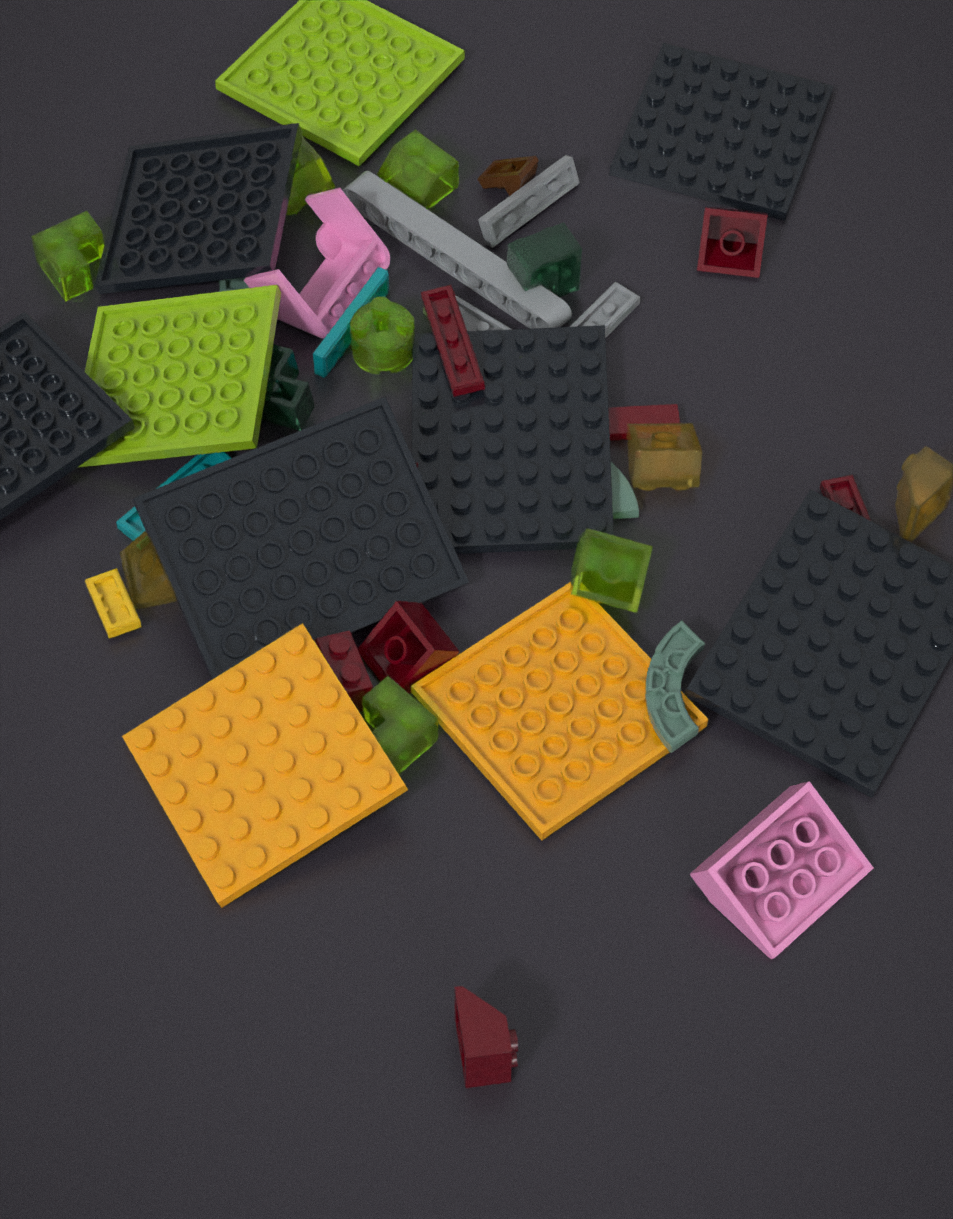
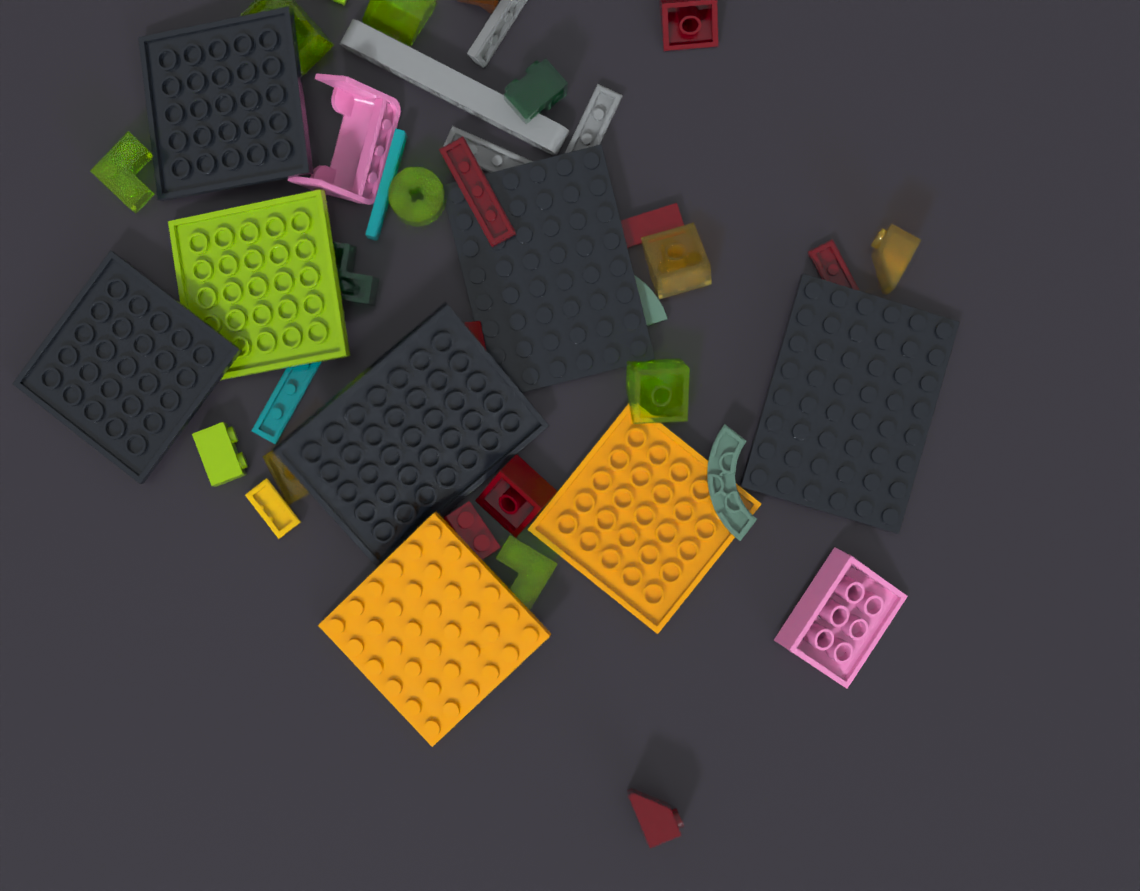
camera: 15 degrees left, 30 degrees up
(70, 534) = (220, 453): none -> lime brick

